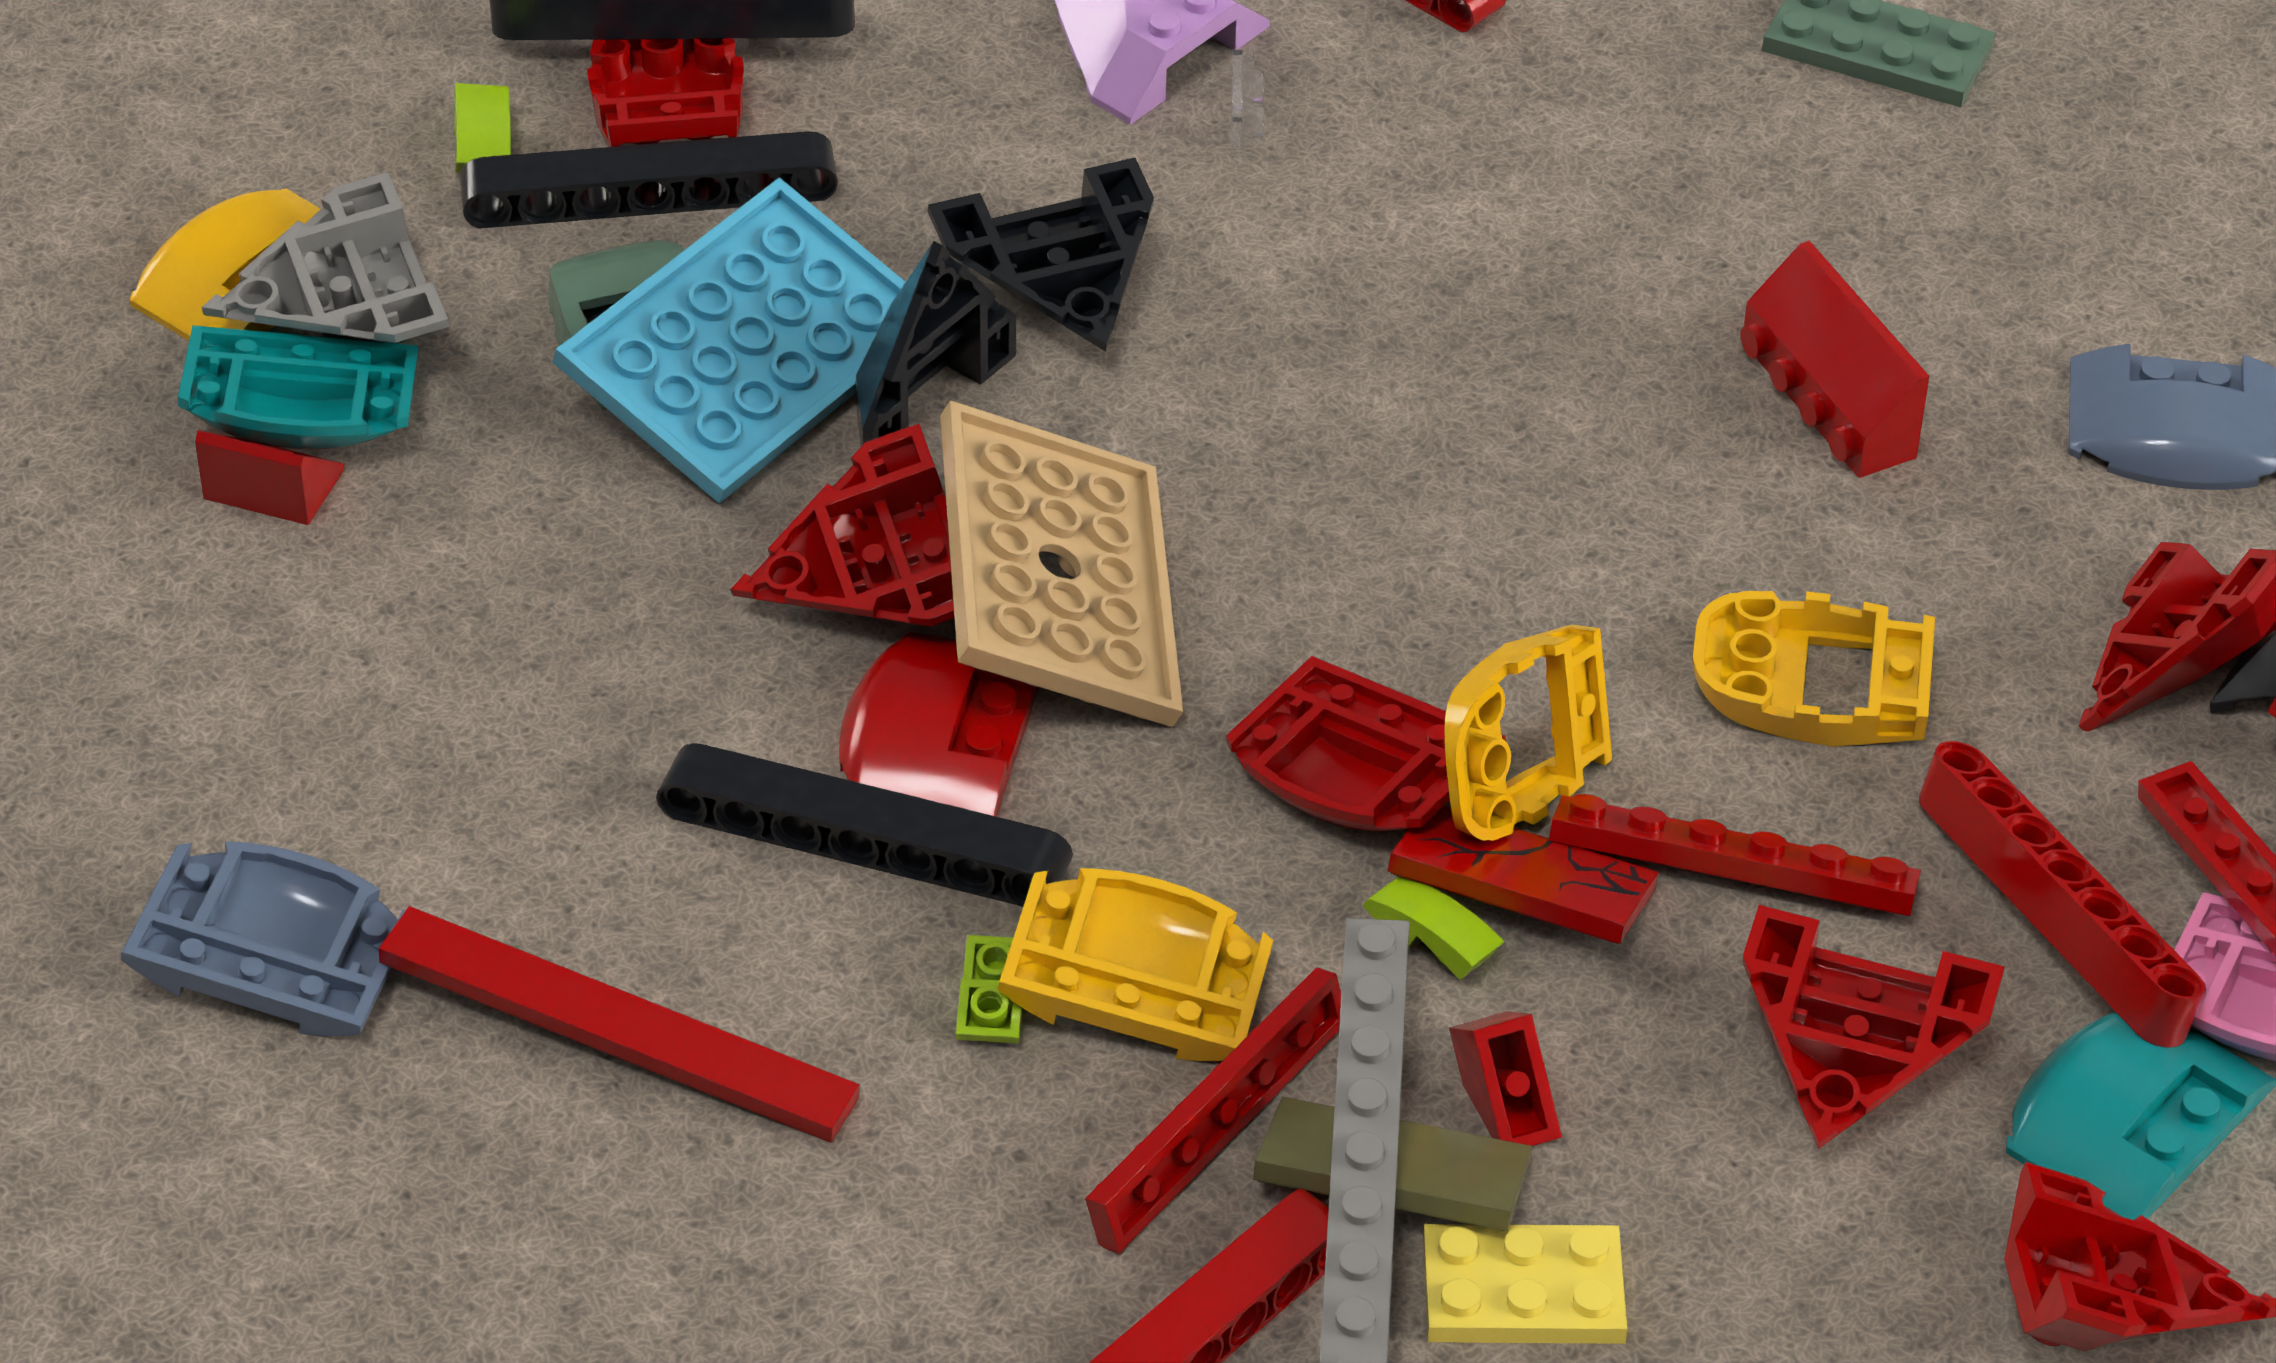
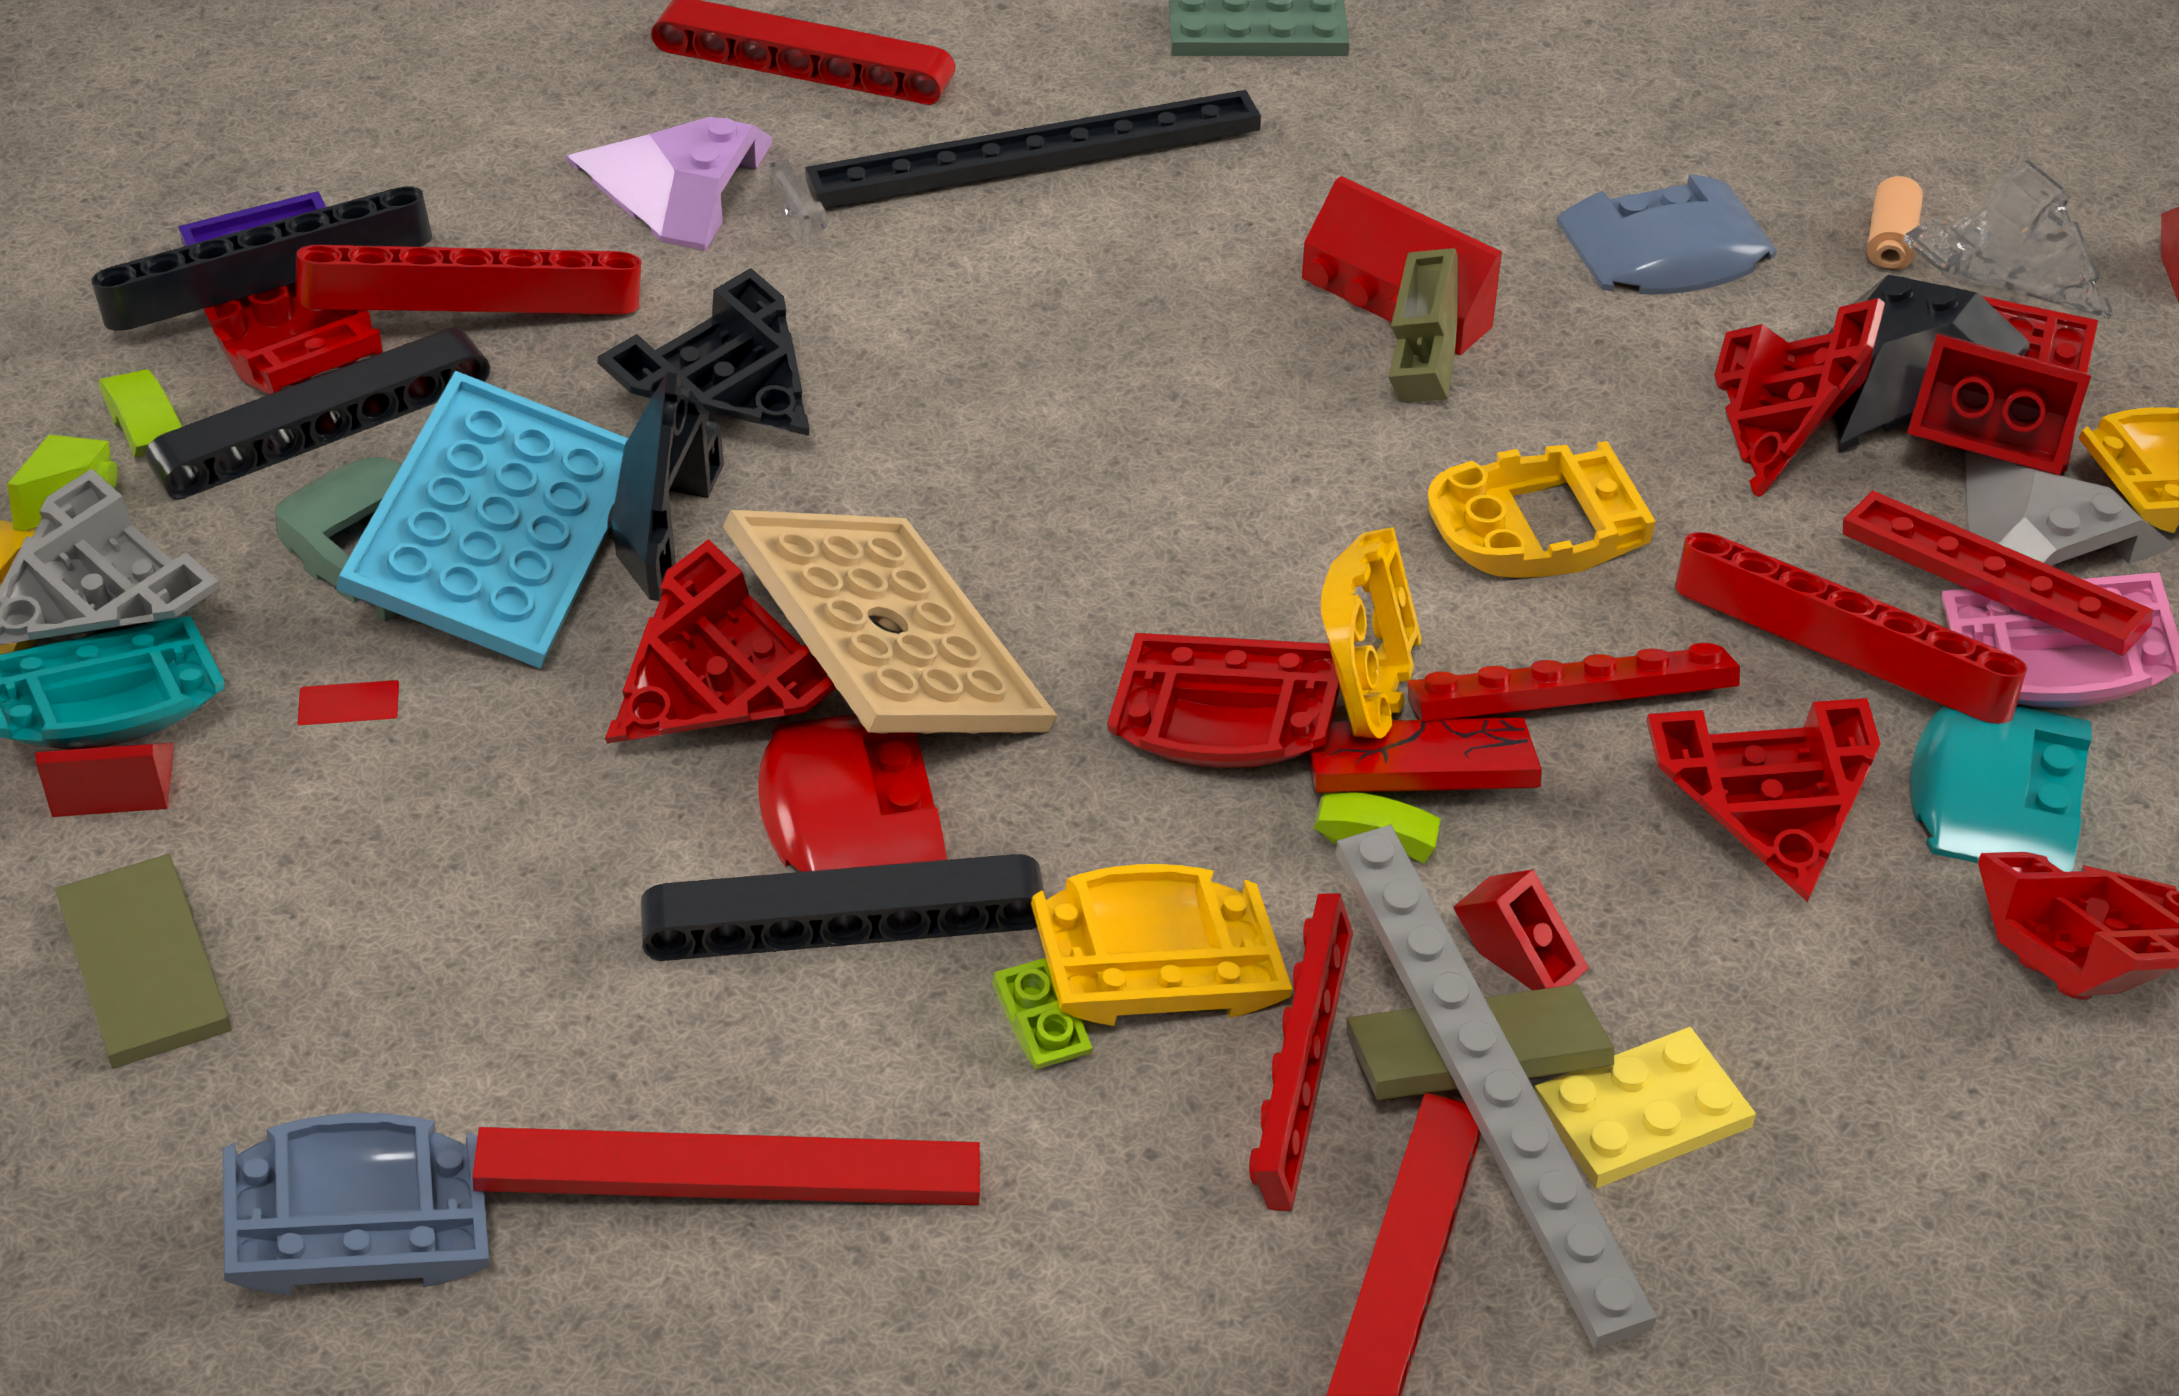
camera: 25 degrees left, 0 degrees up
(210, 657) = (142, 960): none -> olive tile
(367, 156) = (50, 468): none -> lime slope
(525, 478) = (348, 702): none -> red sticker
(858, 86) = (467, 279): none -> red beam
(1538, 113) = (1032, 148): none -> black plate
(1815, 433) = (1425, 326): none -> olive slope

